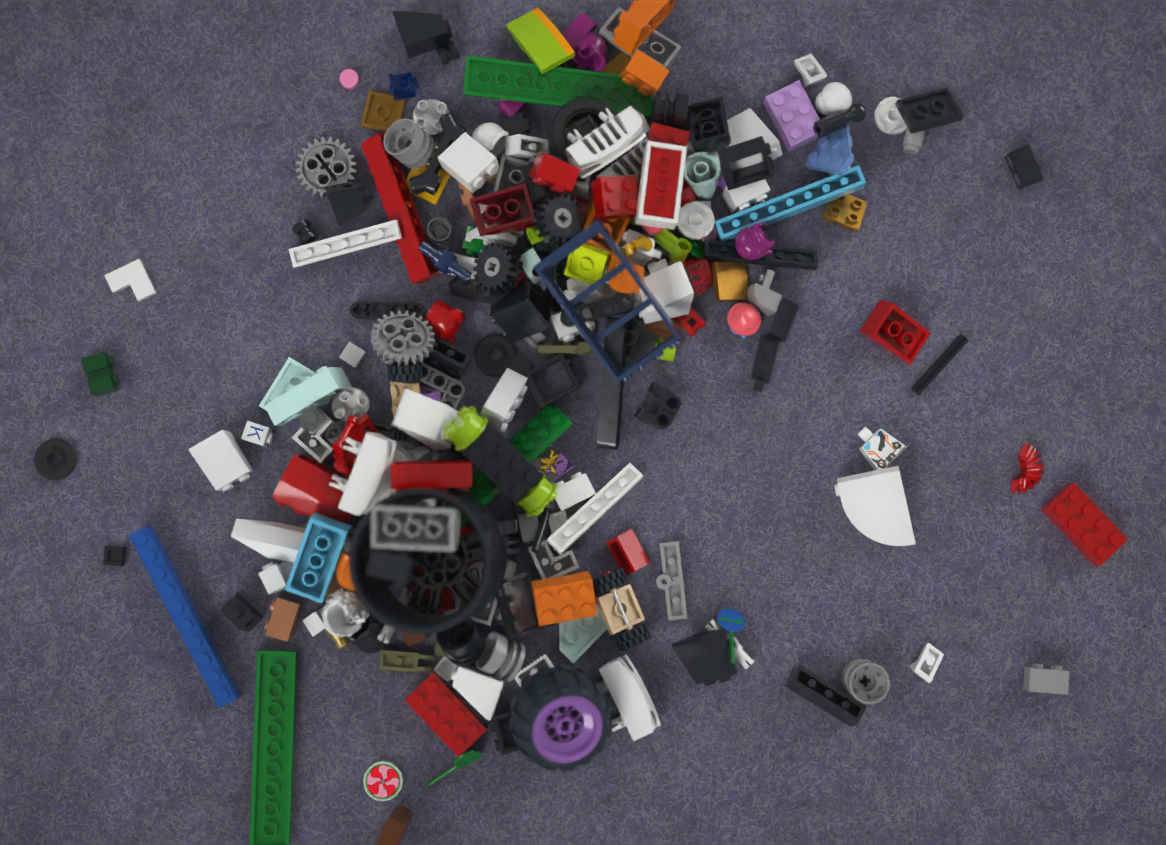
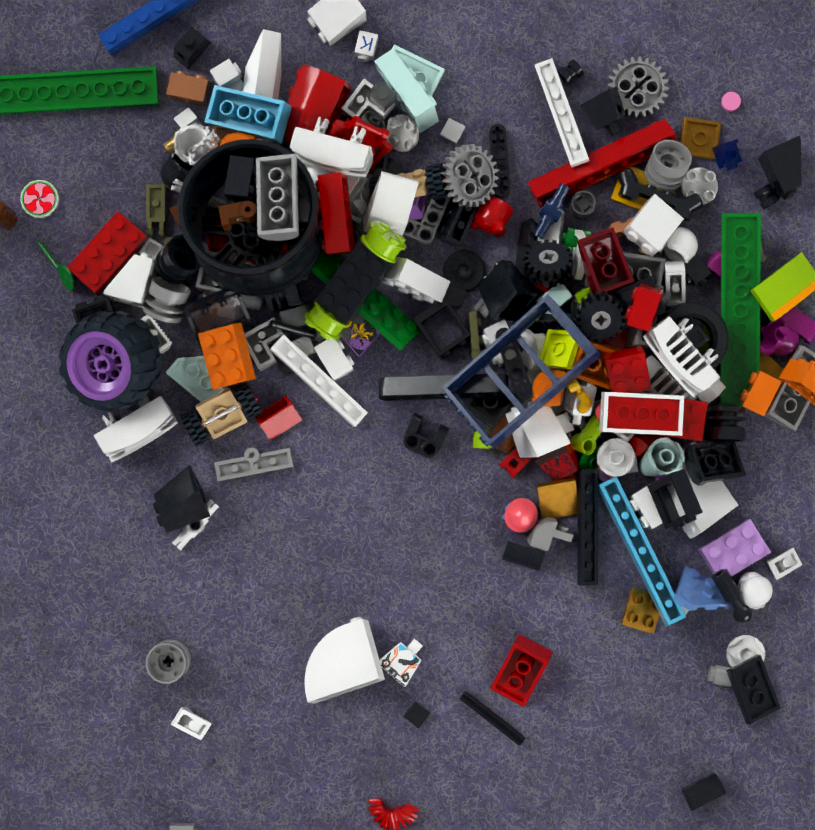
camera: 90 degrees right, 0 degrees up
(426, 571) = (237, 212): none -> reddish brown leg
(733, 623) = (217, 524): blue piece -> none
(752, 242) = (597, 516): magenta hair -> none
(764, 362) = (479, 539): black hinge -> none
(825, 696) = (151, 623): black brick -> none
(931, 438) = (417, 714): none -> black tile

